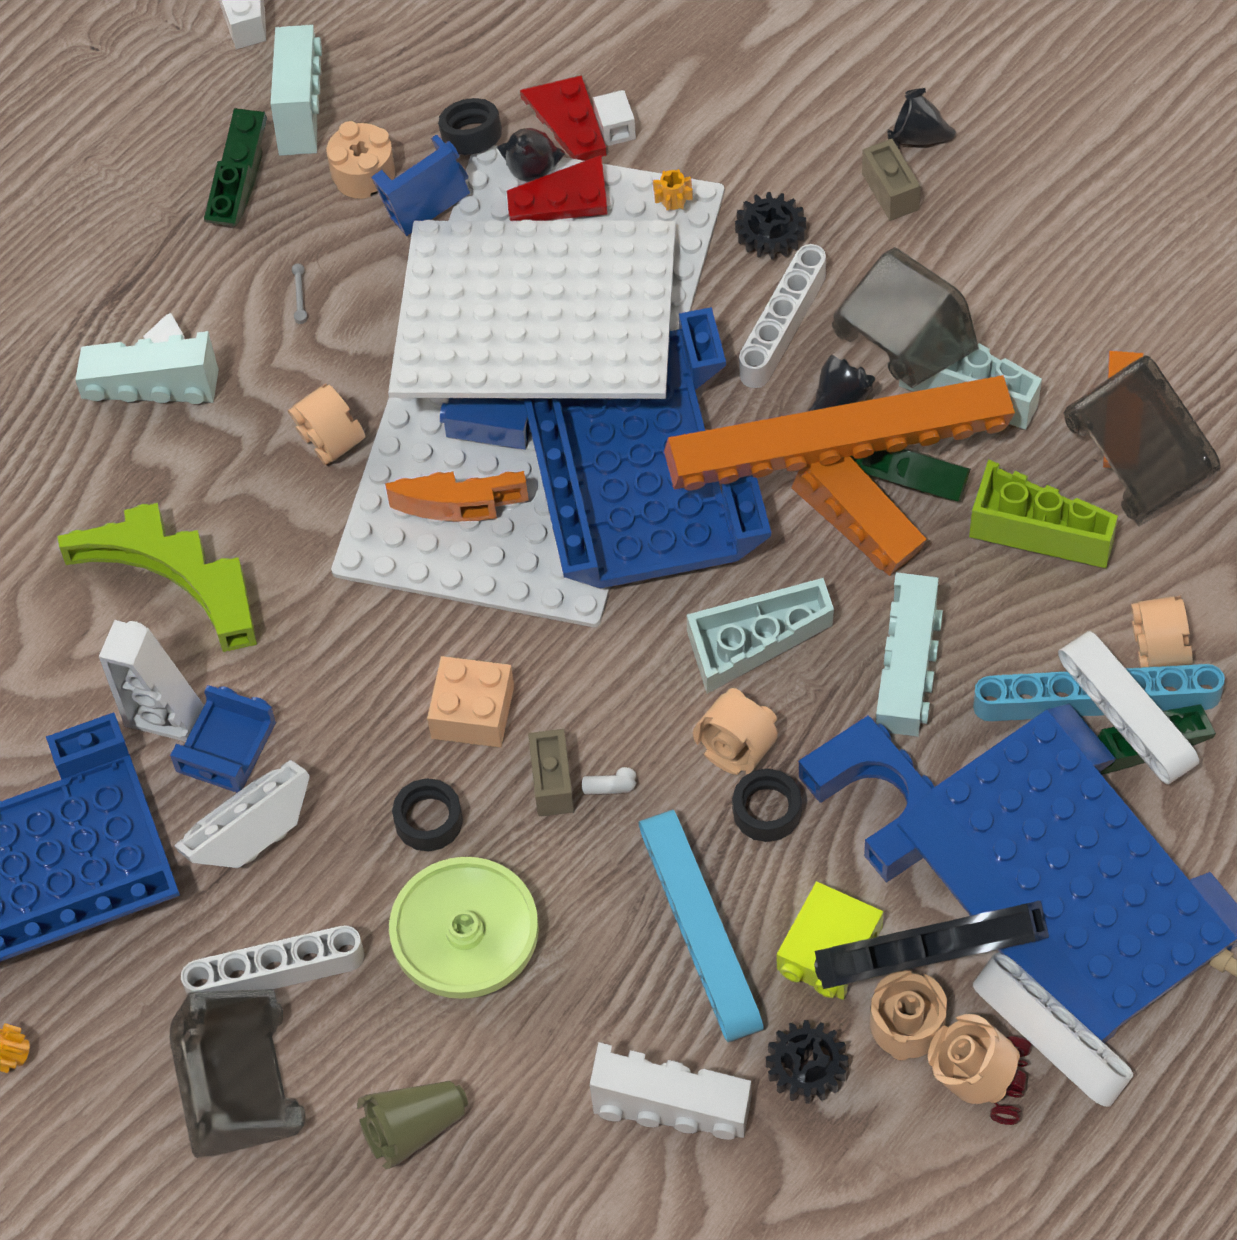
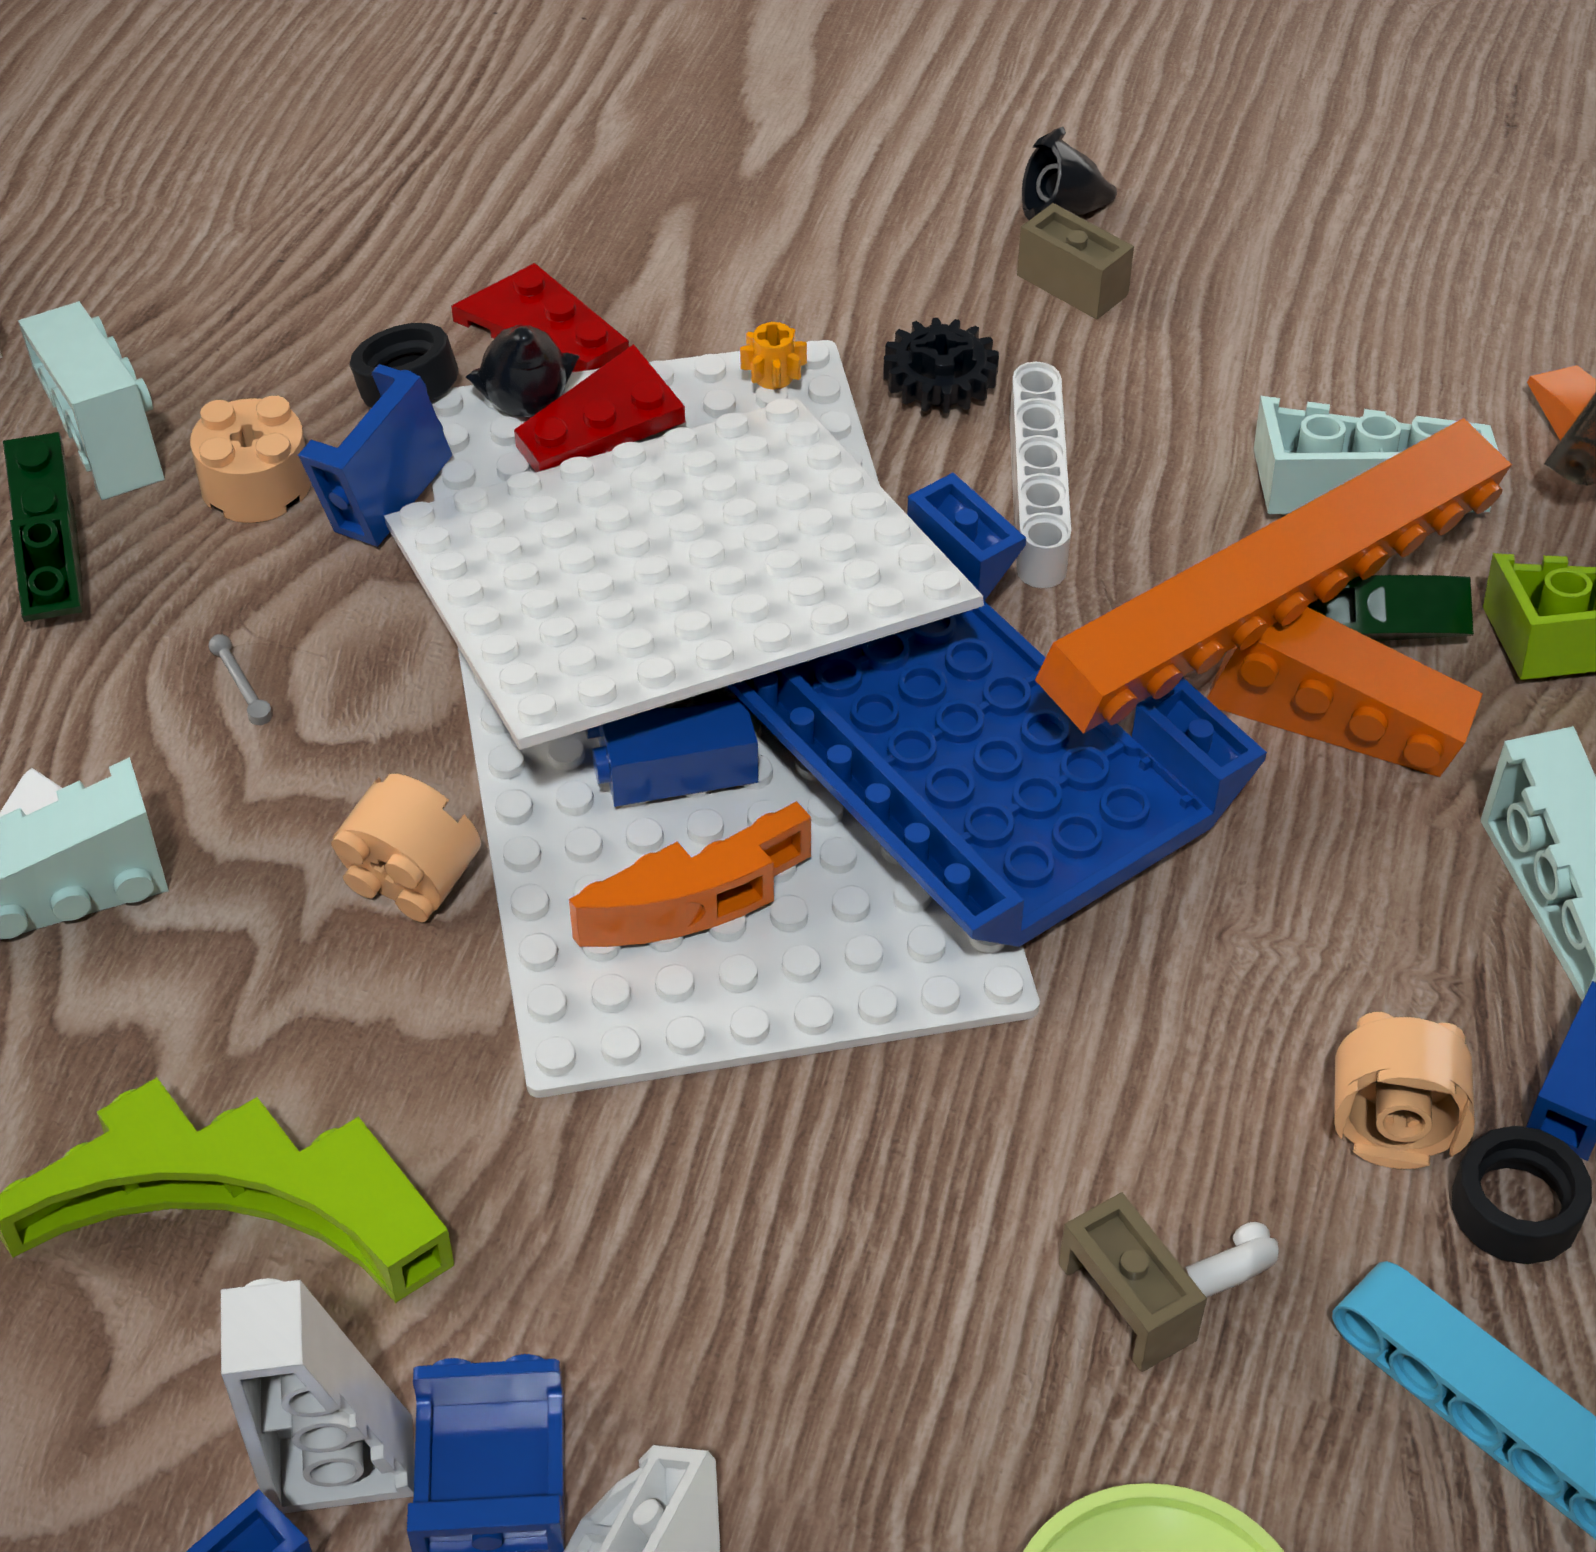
camera: 30 degrees left, 10 degrees down
(423, 790) = (957, 1397): black tyre -> none
(470, 701) = (915, 1213): light nougat brick -> none
(614, 118) = (621, 296): white panel -> none
(756, 629) = (1305, 927): light aqua wedge -> none
(841, 384) = (1196, 524): black hat -> none
(909, 316) = (1250, 384): clear smoke windscreen -> none

